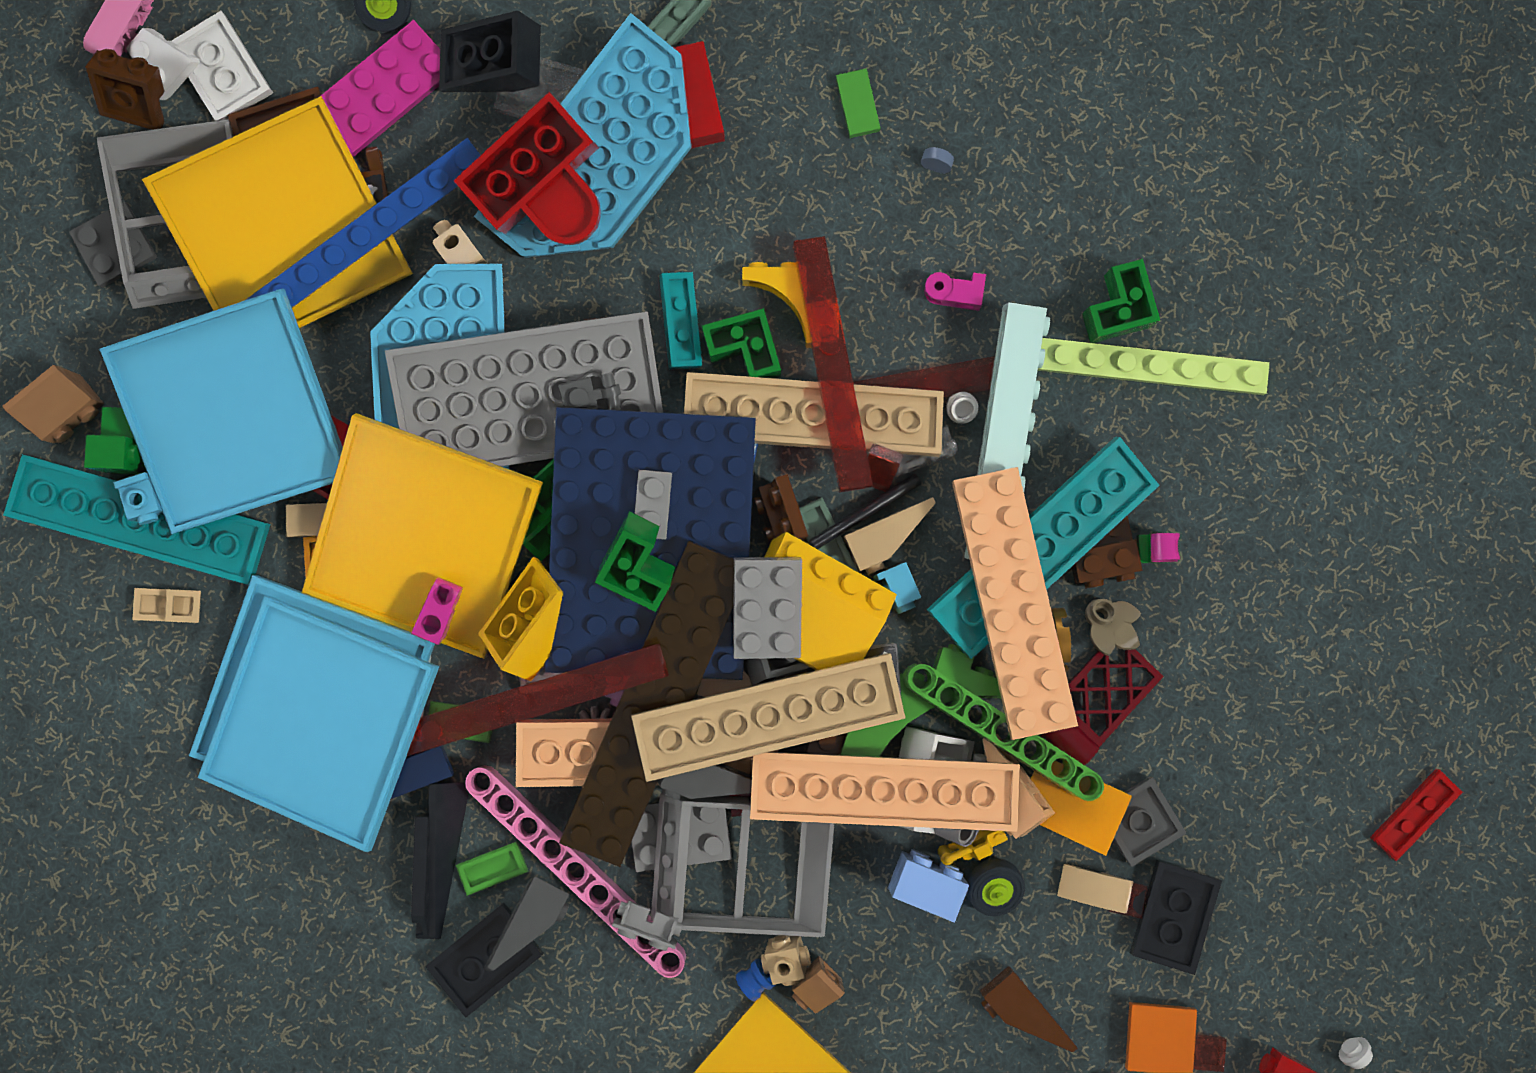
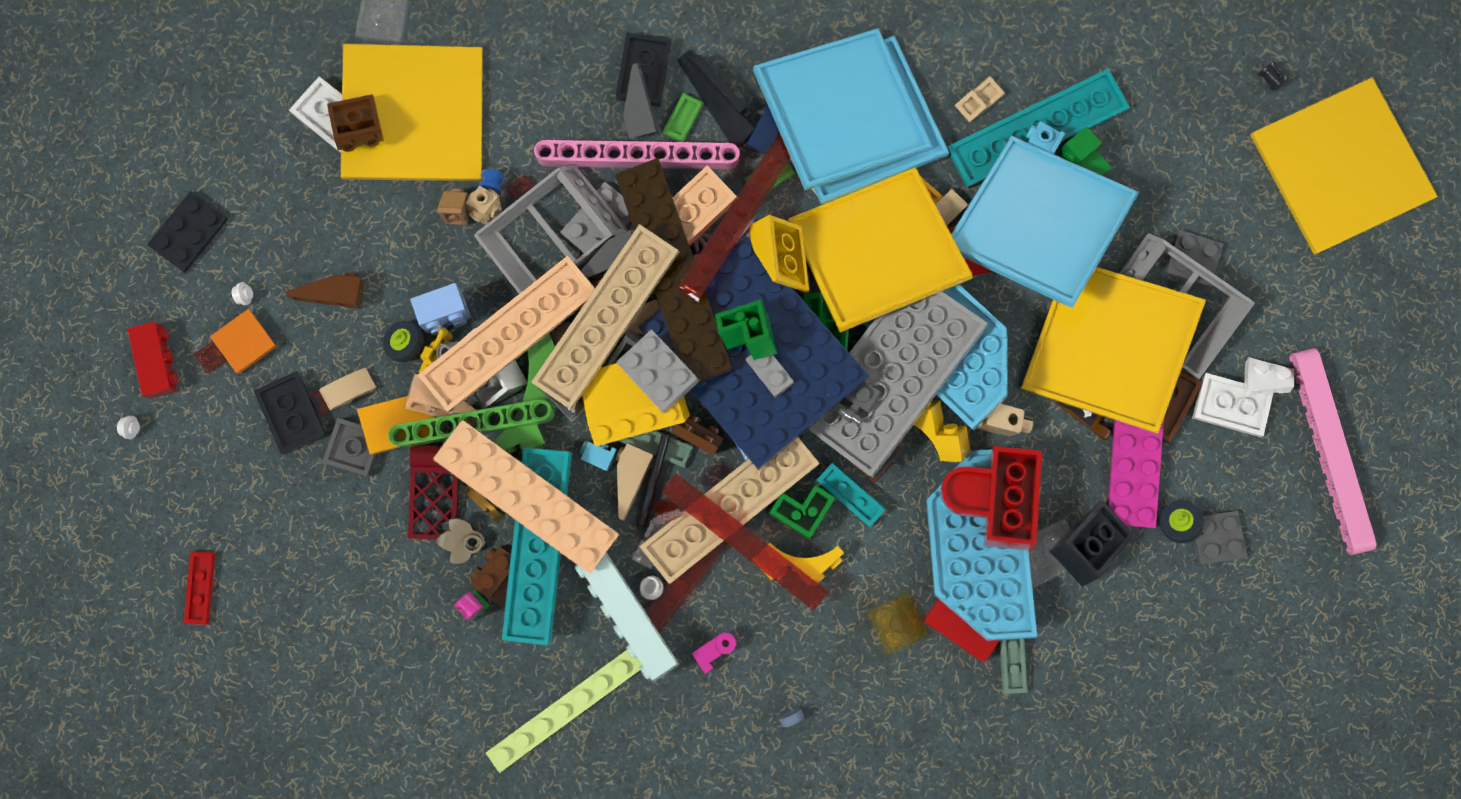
camera: 135 degrees right, 5 degrees down
(54, 404) = (1136, 147): medium nougat slope -> none
(126, 89) = (1268, 345): reddish brown plate -> none
(373, 226) = (1064, 388): blue plate -> none
(437, 611) = (833, 218): dark pink leg -> none
(534, 283) = (950, 439): none -> yellow arch
(635, 924) = (580, 151): light grey hinge -> none
(729, 945) = (519, 187): none -> clear red tile
(753, 156) = (896, 623): none -> clear yellow slope
(858, 103) = (867, 711): bright green tile -> none
(1130, 304) = (605, 727): green brick -> none

